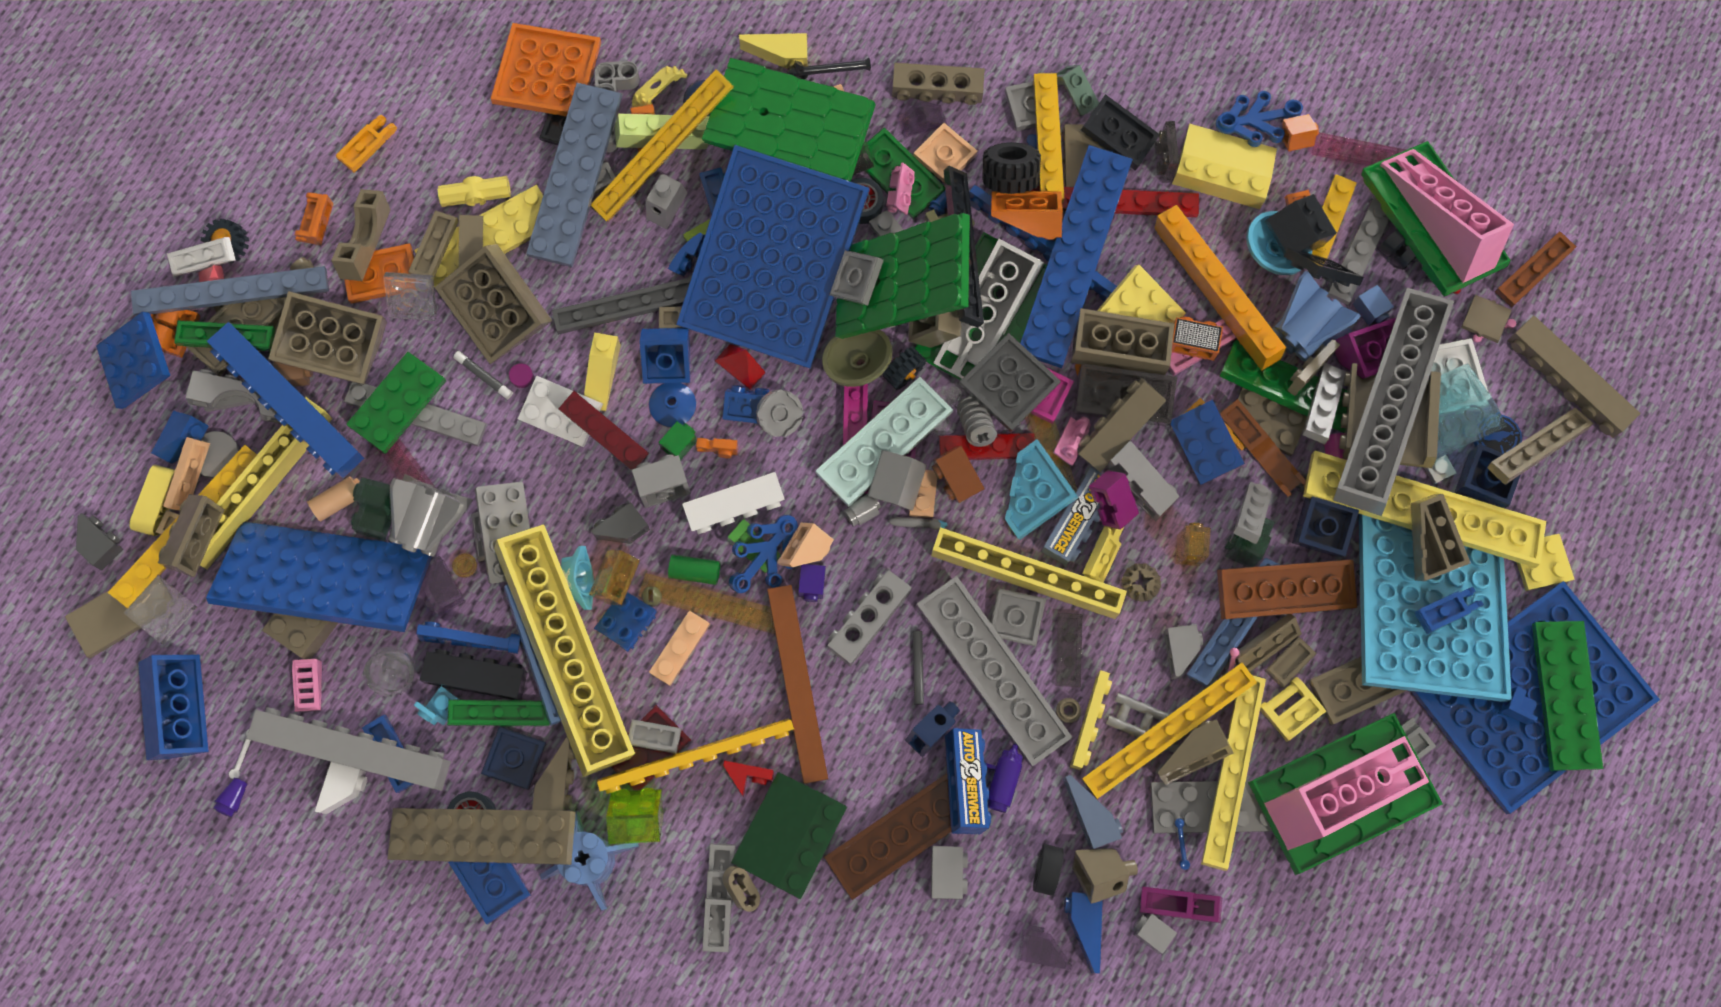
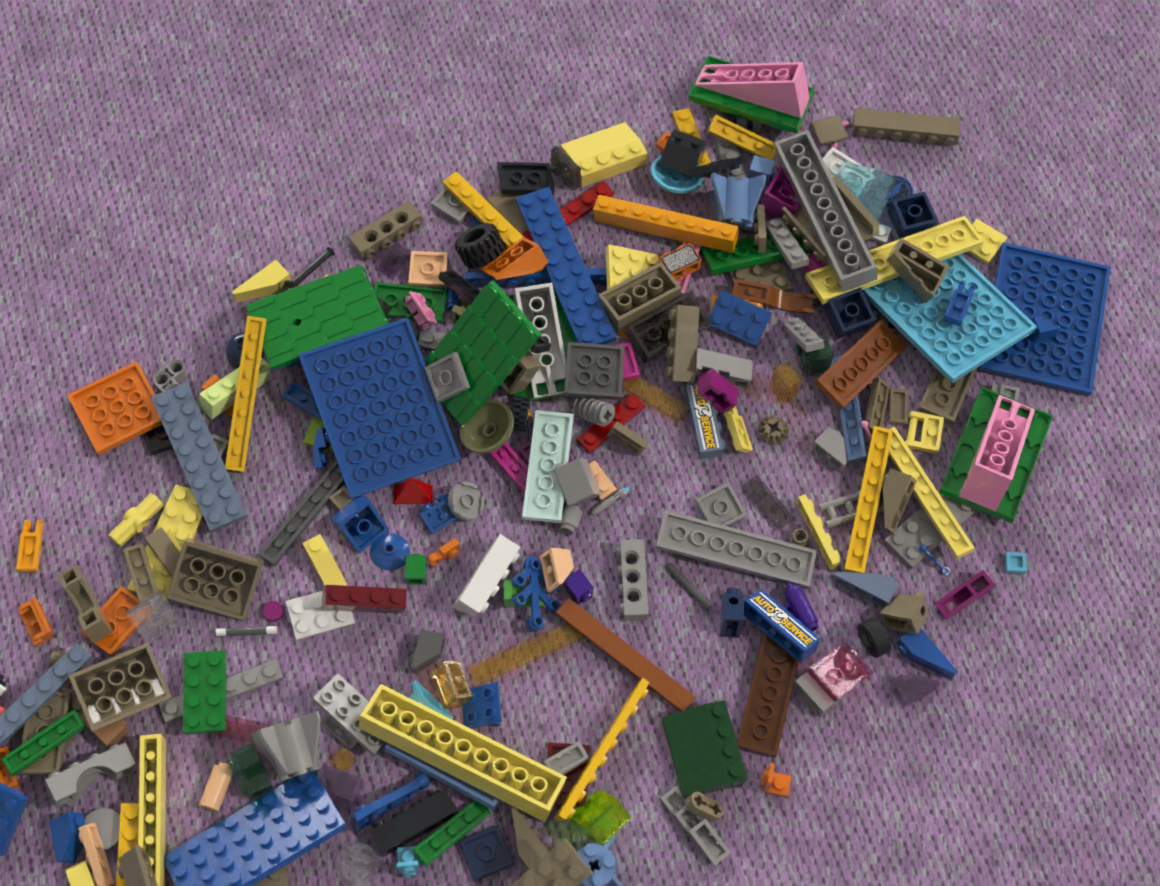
camera: 40 degrees left, 10 degrees down
(289, 404) = (129, 746): blue brick -> none
(657, 596) = (482, 680): olive hinge -> none
(661, 481) = (429, 600): light grey brick -> none
(666, 76) = (201, 374): light yellow piece -> none
(667, 197) = (273, 425): light grey torso -> none
(679, 648) = (531, 696): light nougat plate -> none
(694, 569) = (497, 639): green pin -> none
(740, 772) = (639, 738): red slope -> none
(829, 924) = (775, 783): none -> orange bracket
(957, 474) = (611, 449): dark orange brick -> none
(983, 469) = (627, 438): none -> dark tan plate
(985, 874) = (840, 671): none -> clear pink tile
(1028, 573) = (704, 475): light yellow brick -> none
(1036, 490) = (665, 423): medium azure plate -> none
(1070, 439) = (659, 377): bright pink hinge -> none
(1078, 88) = (475, 170): sand green bracket -> none
(1154, 933) = (965, 623): light grey brick -> none
(1257, 119) = (585, 127): blue plant -> none
(1263, 916) = (1015, 562): none -> medium azure plate
(1299, 132) = (630, 103): orange brick -> none
(1351, 149) = (669, 91): clear pink tile -> none
(1381, 256) = (741, 137): none -> yellow plate
(1535, 269) = (831, 83): dark orange plate -> none
(1539, 446) = (924, 176): dark tan plate -> none
(1567, 696) = (1062, 303): green plate -> none

